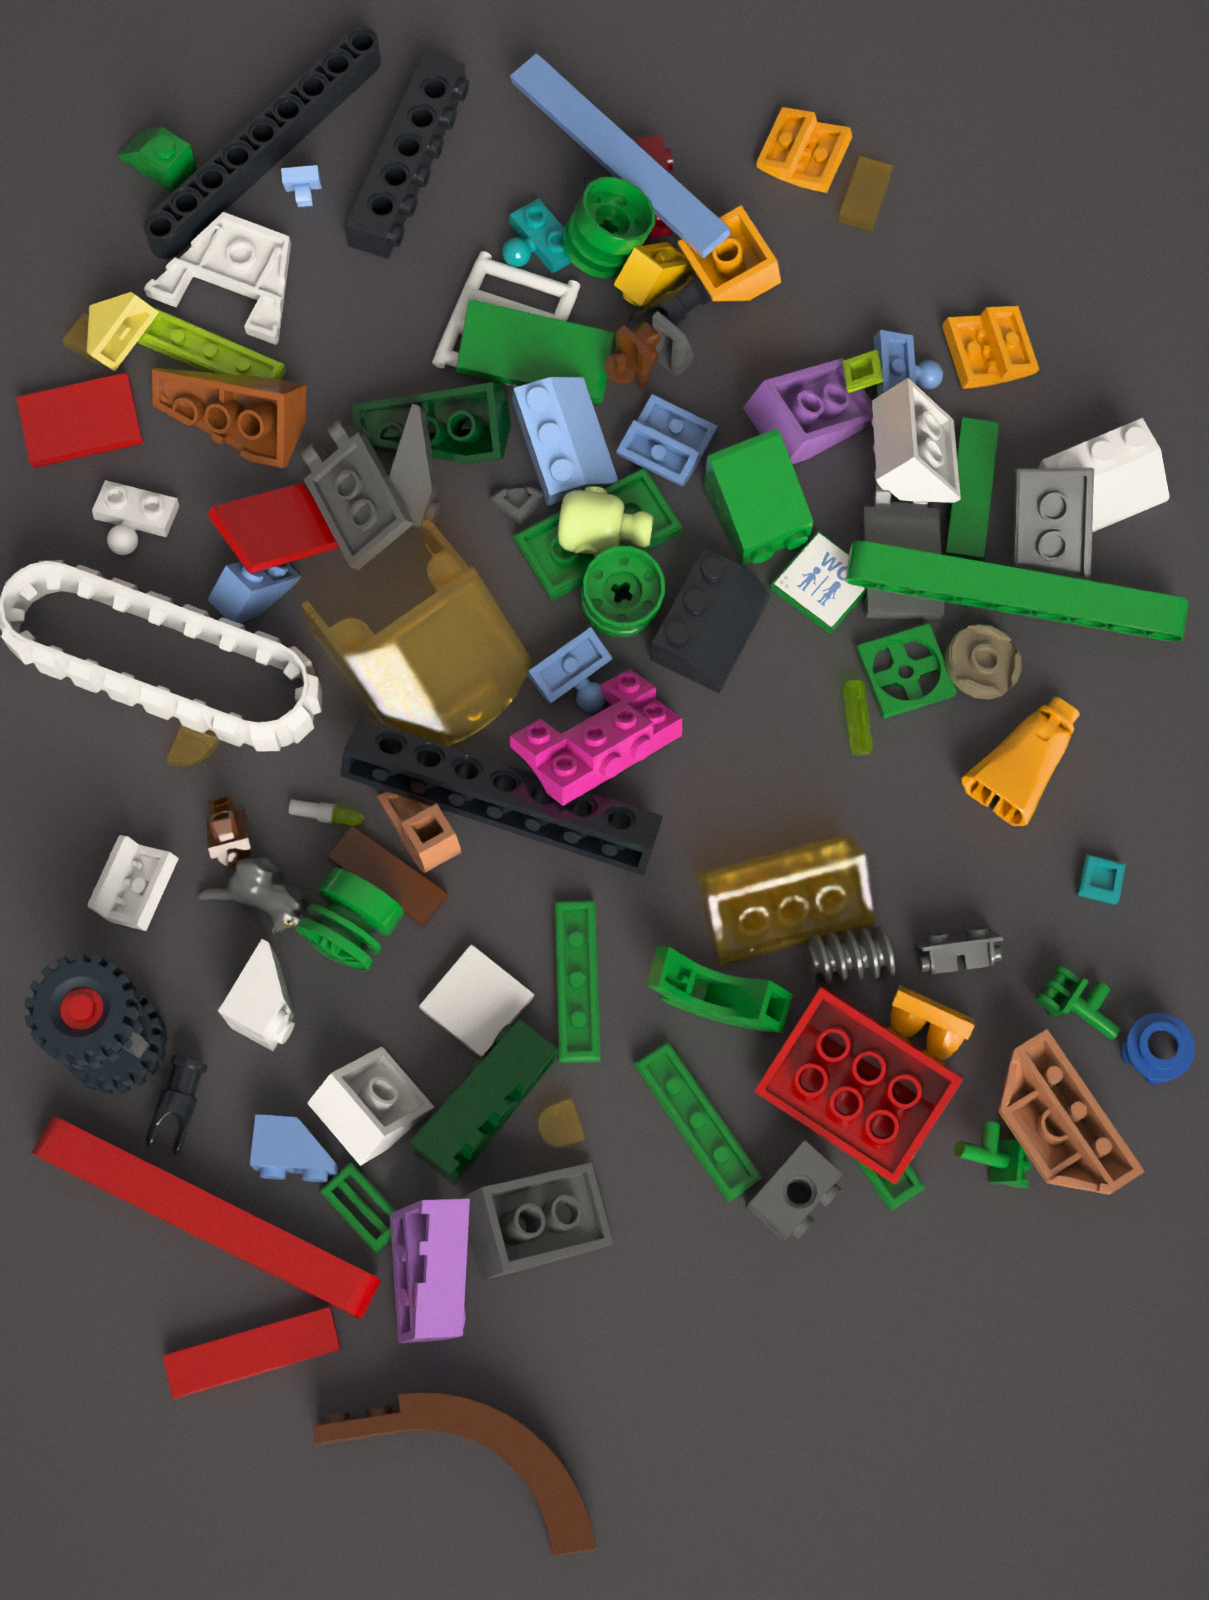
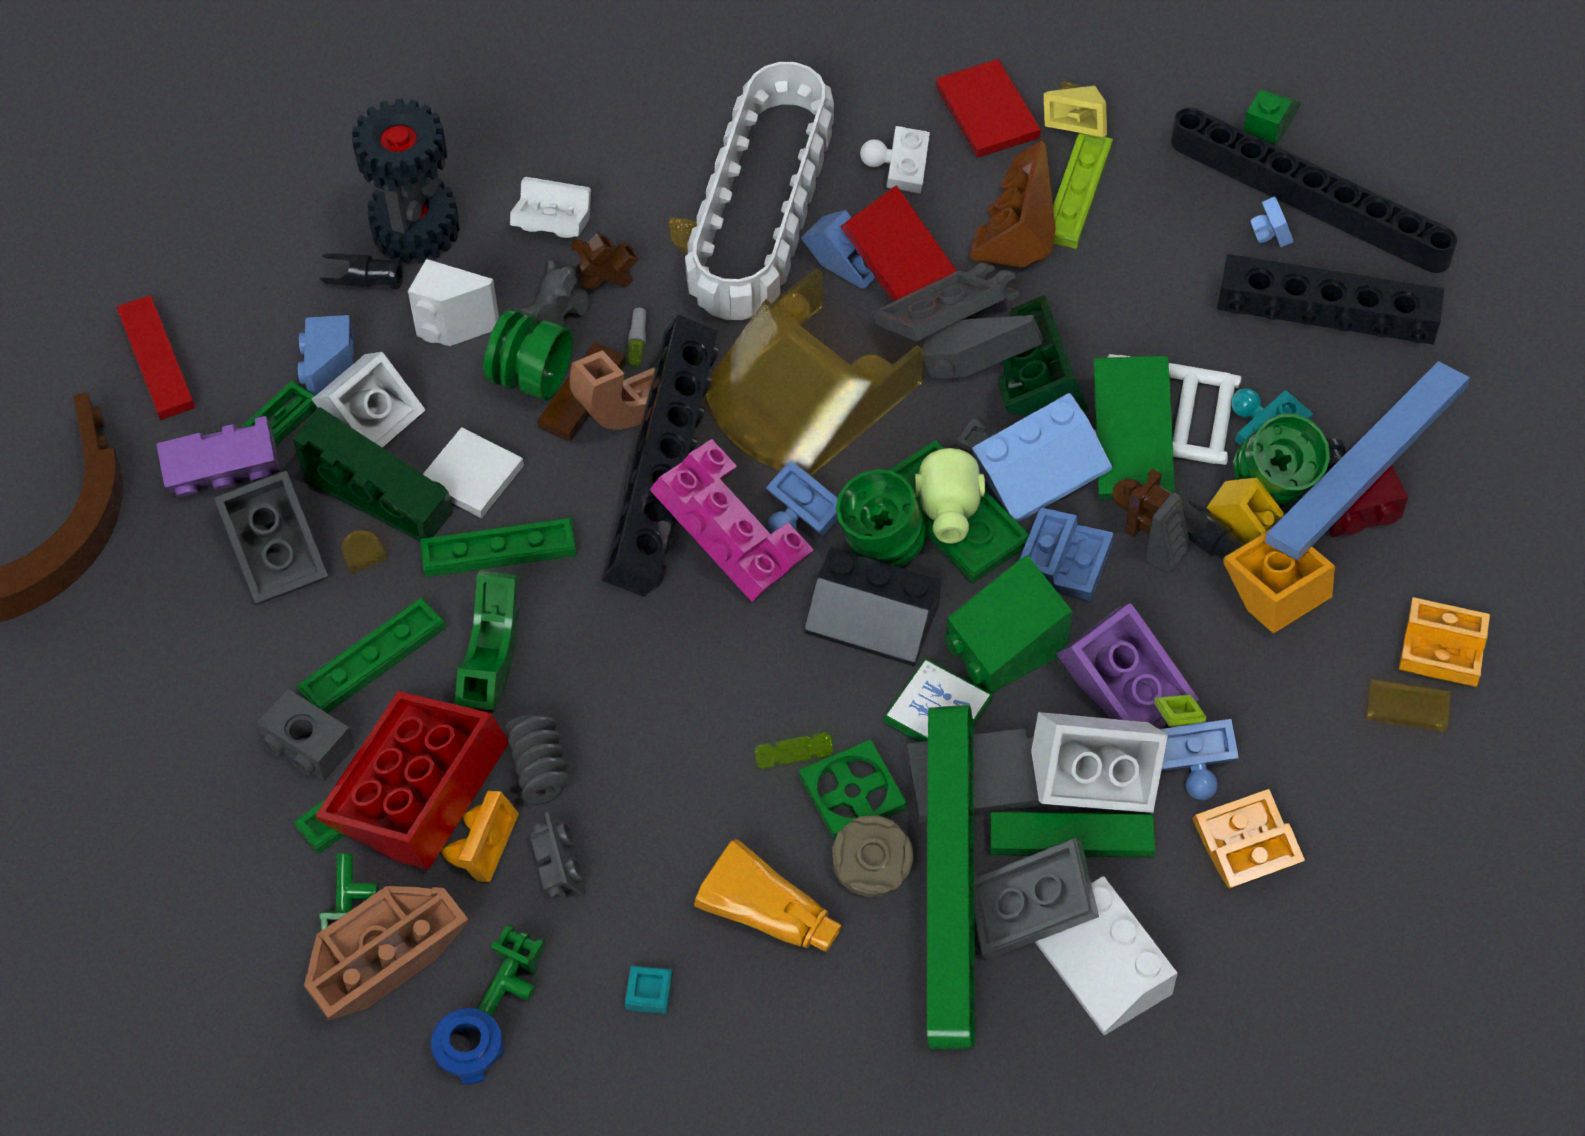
camera: 85 degrees right, 15 degrees down
(207, 1217) = (263, 308): red beam -> none
(240, 259) = (1178, 195): white wing -> none
(786, 898) = (592, 700): clear yellow slope -> none

